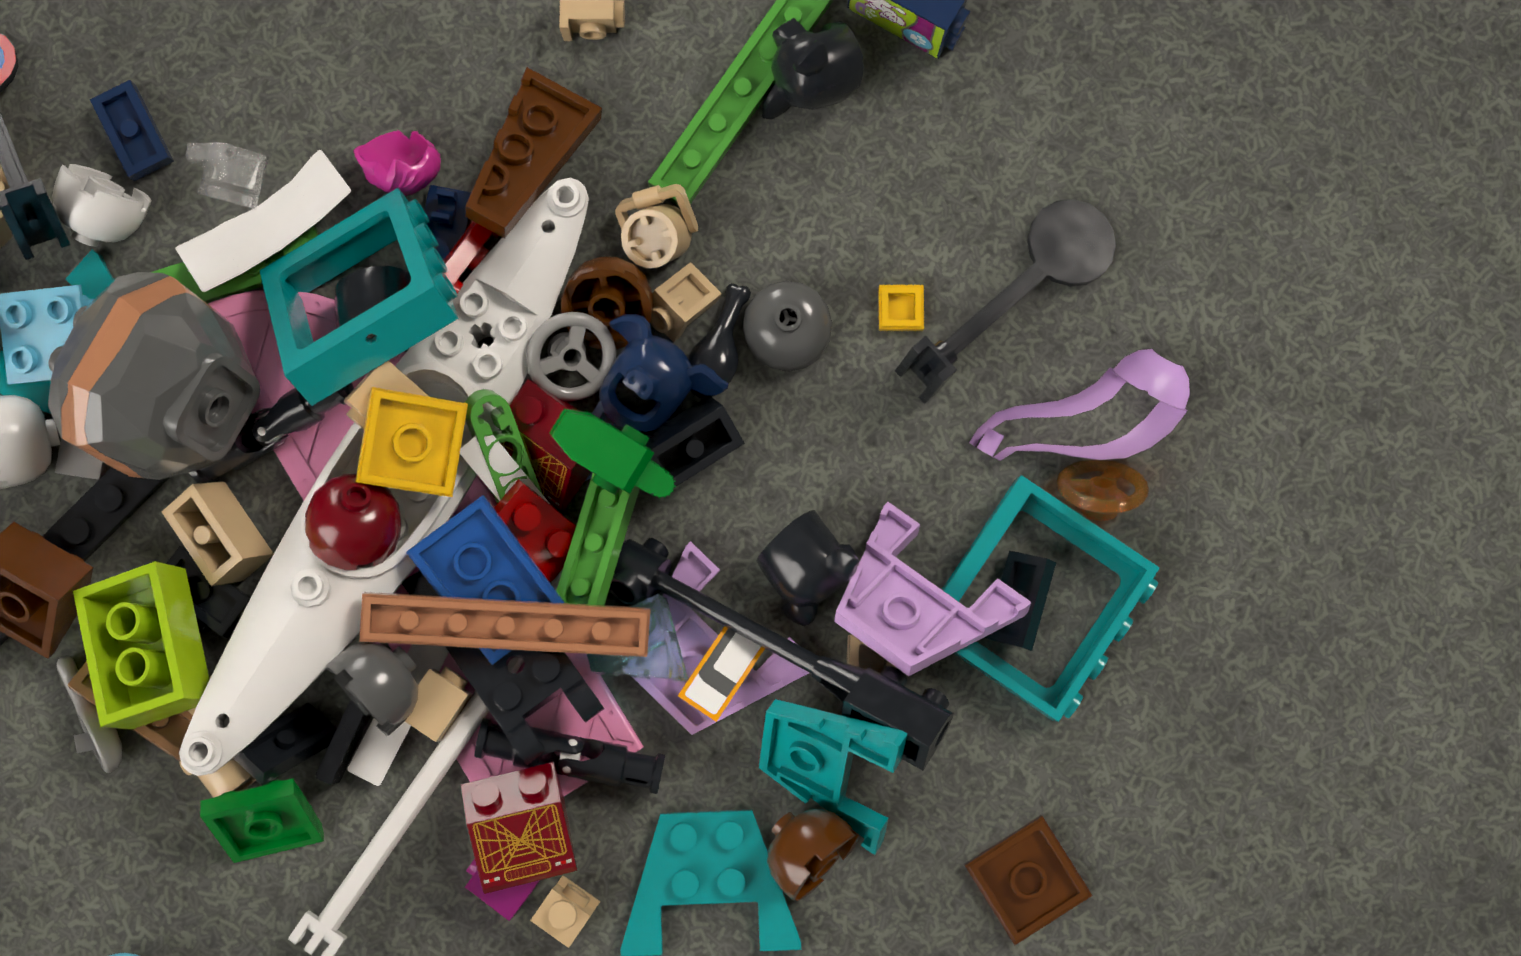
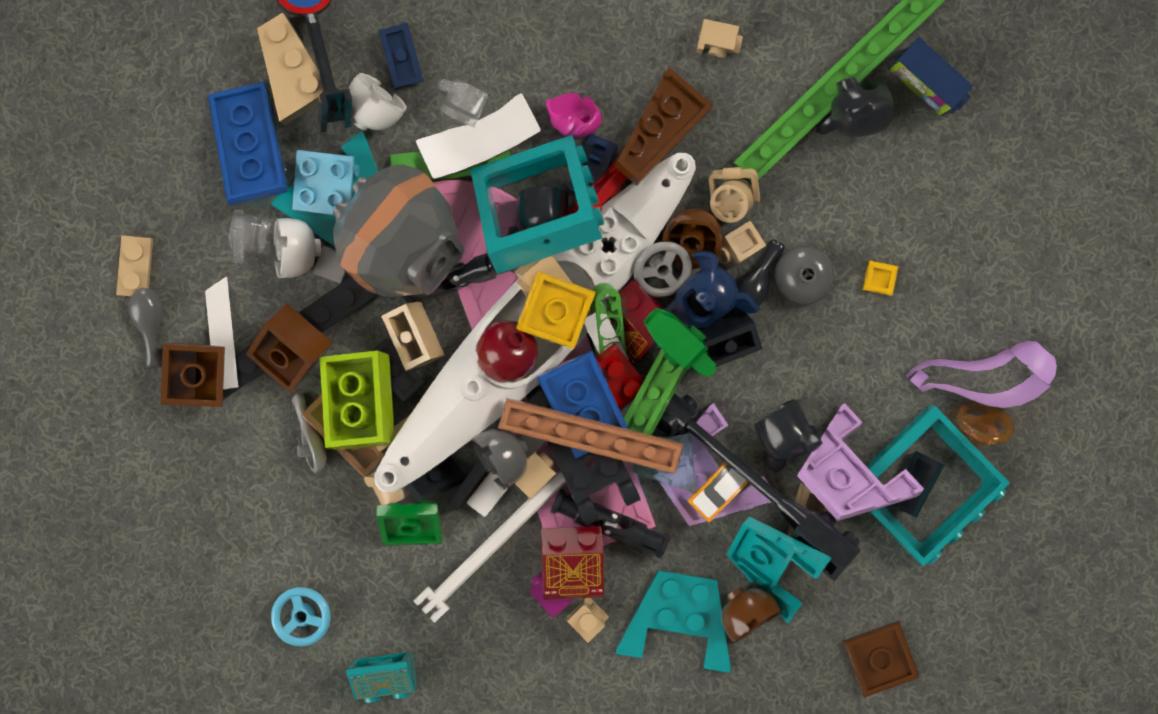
camera: 10 degrees right, 5 degrees up
(1067, 245) = (997, 259): black piece -> none

